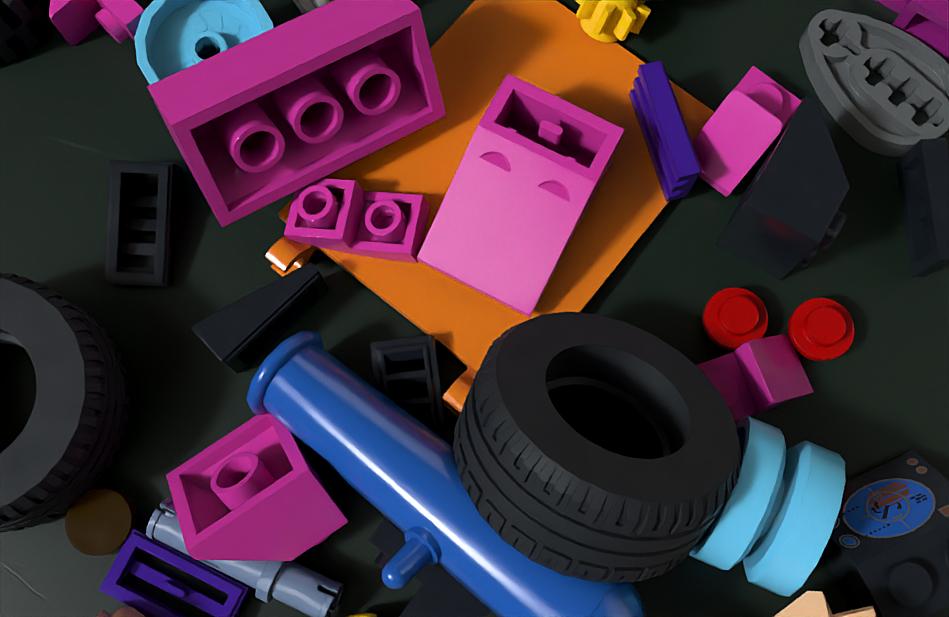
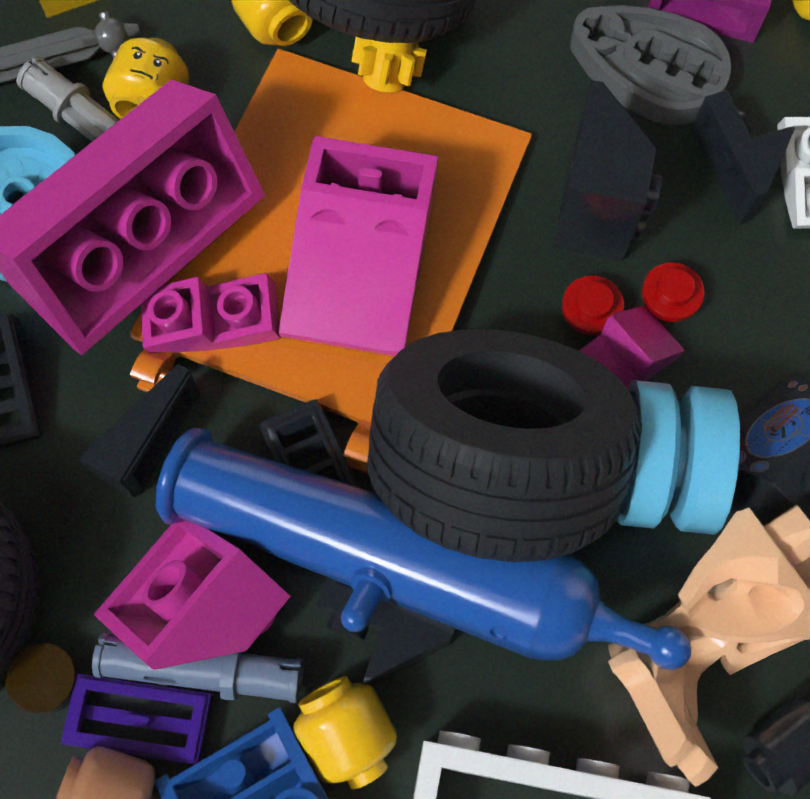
camera: 20 degrees left, 5 degrees down
(664, 131) = (474, 154): dark purple tile -> none
(742, 129) = (541, 137): dark pink slope -> none

